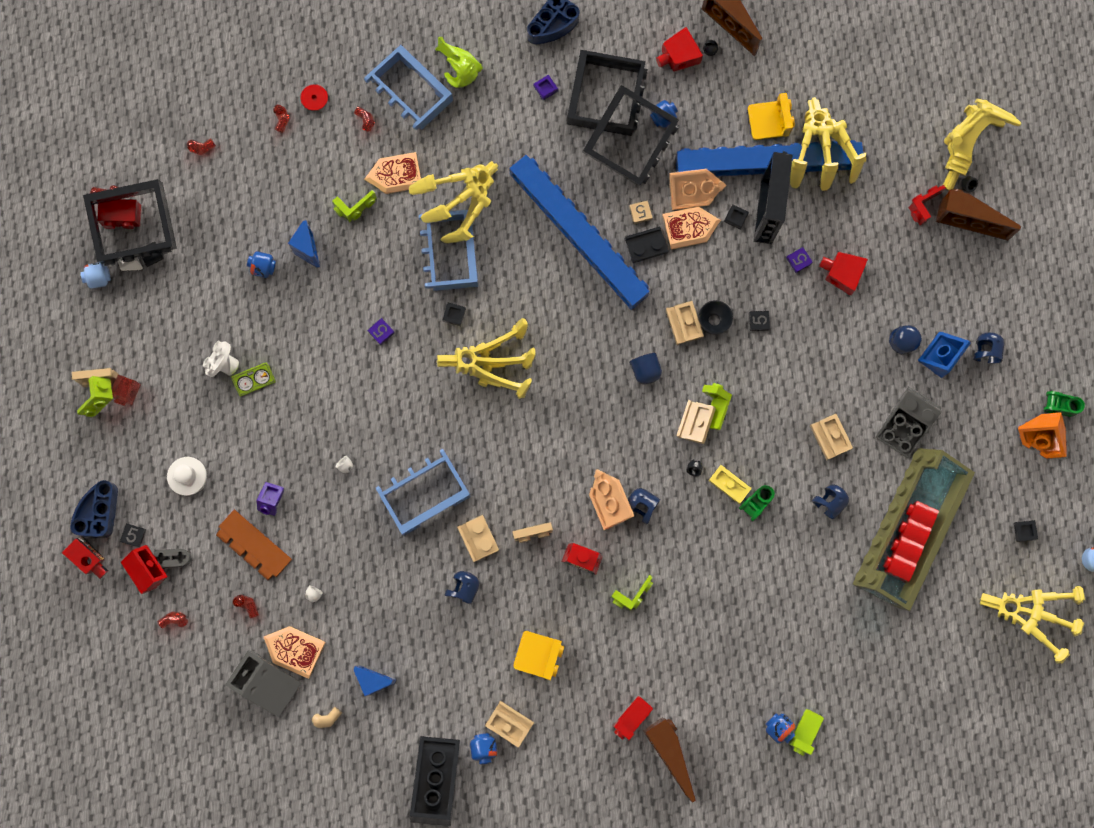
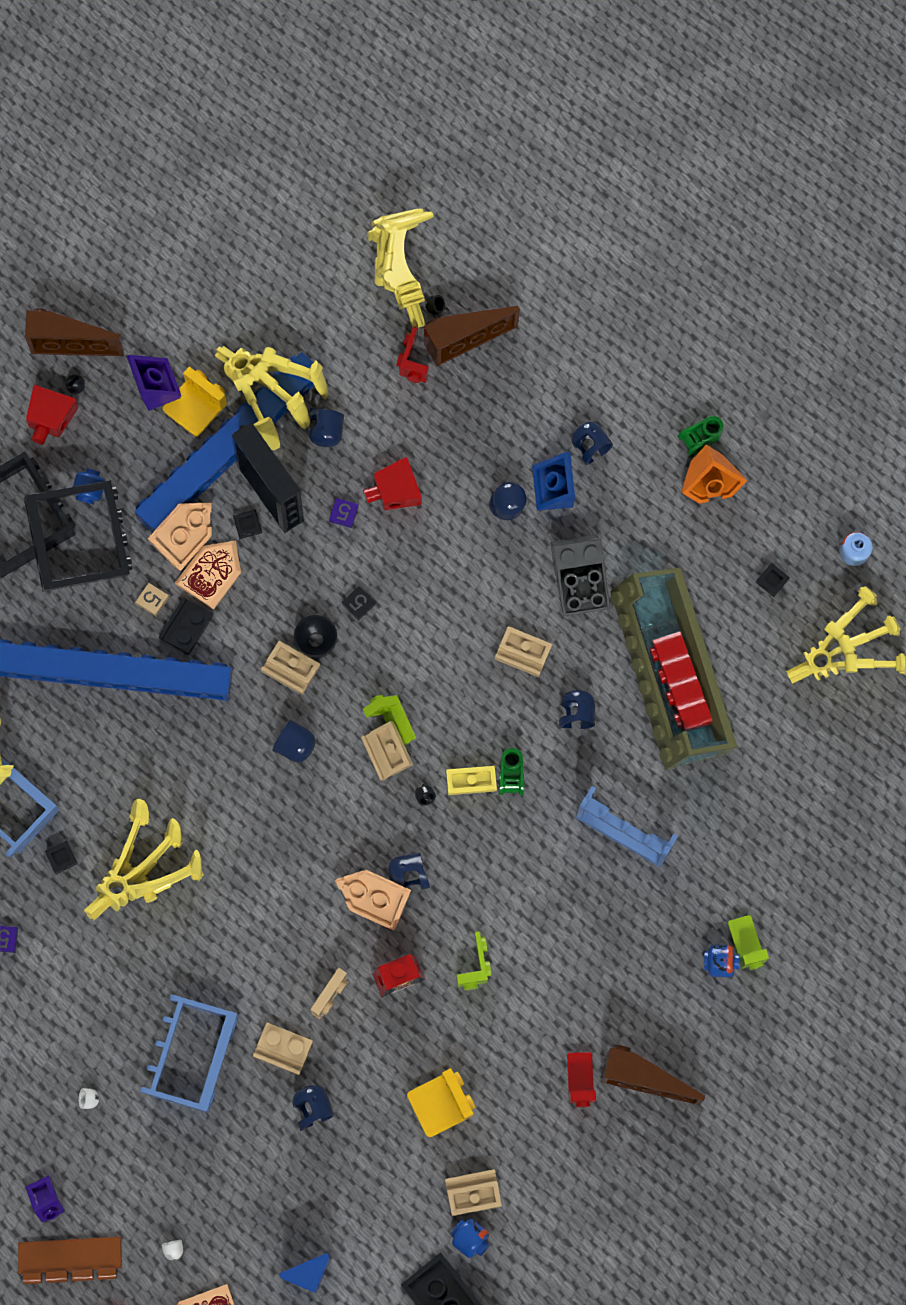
camera: 45 degrees left, 5 degrees down
(758, 84) = (154, 380): none -> dark purple slope
(785, 576) = (645, 845): none -> medium blue hinge
(836, 201) = (328, 427): none -> dark blue helmet

